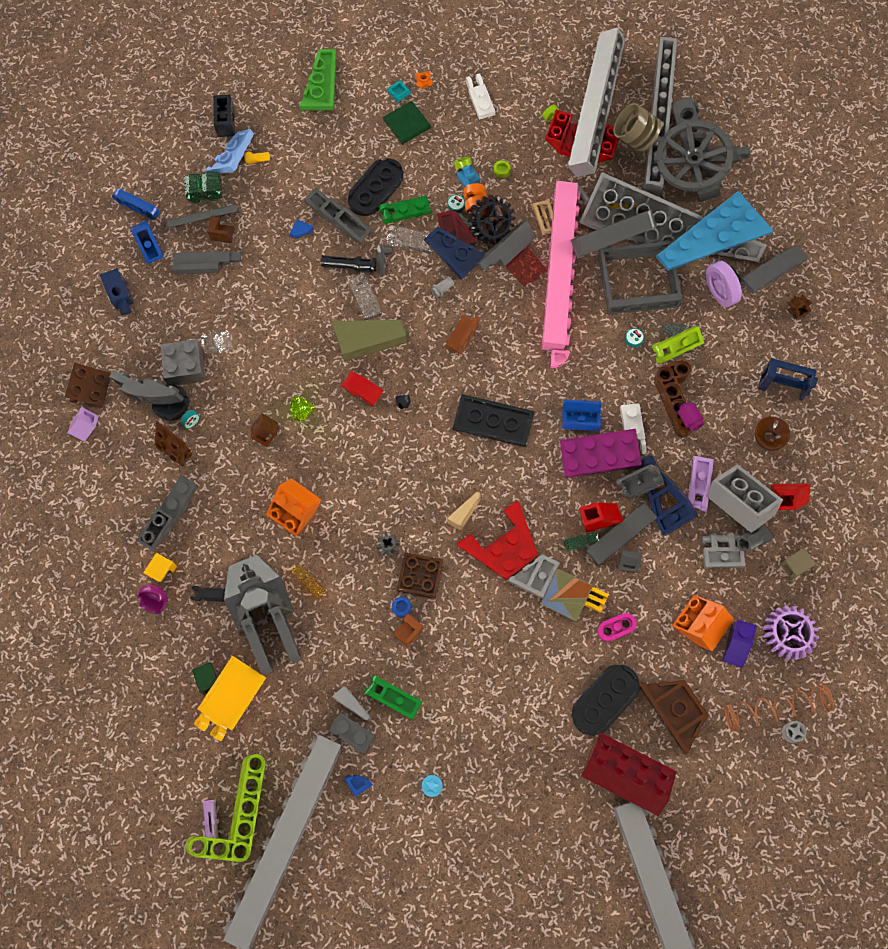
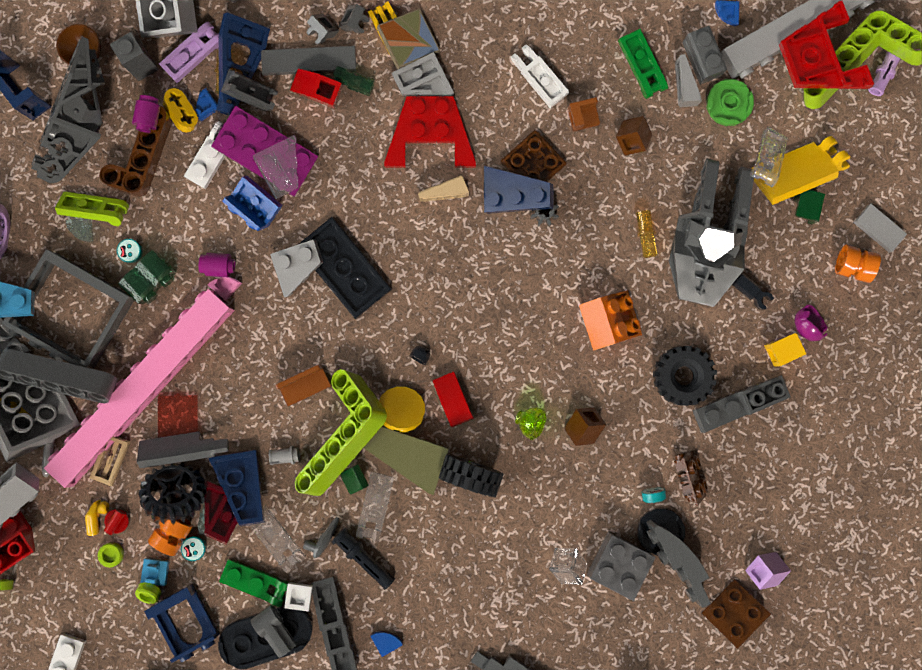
camera: 150 degrees left, 15 degrees up
(141, 663) = (861, 265): none -> orange wheel
(144, 703) = (880, 228): none -> light grey tile
(209, 495) = (702, 375): none -> black tyre
(256, 691) = (770, 157): none -> clear plate
(272, 782) = (813, 59): none -> red wing
(310, 722) = (733, 108): none -> bright green tile
(316, 346) = (471, 476): none -> black tyre
(363, 641) = (634, 135): none -> reddish brown panel
(372, 216) = (298, 596): none -> white tile
(376, 190) = (270, 625): none -> dark grey piece
(388, 301) = (354, 479): none -> dark green tile
(390, 359) = (403, 408): none -> yellow tile
(401, 607) = (573, 144): blue tile -> none
(407, 321) = (349, 439): none -> lime beam
(417, 540) = (515, 192): none -> dark blue wing
(418, 148) = (179, 648): none -> dark blue panel
(457, 635) = (541, 77): none -> white hinge
(513, 186) = (116, 521): none -> red plate
(524, 399) = (296, 264): none -> light grey wing
(529, 180) = (92, 516): none -> yellow arm
(573, 365) = (216, 264): none -> magenta brick
(581, 445) = (279, 166): none -> clear wing
(609, 328) = (148, 277): none -> clear green brick
(615, 581) = (352, 17): none -> dark grey tile
(663, 458) = (205, 105): none -> blue tile
(673, 445) = (183, 109): none -> yellow beam
(732, 381) = (72, 116): none -> dark grey connector
(735, 449) = (134, 55): none -> dark grey slope

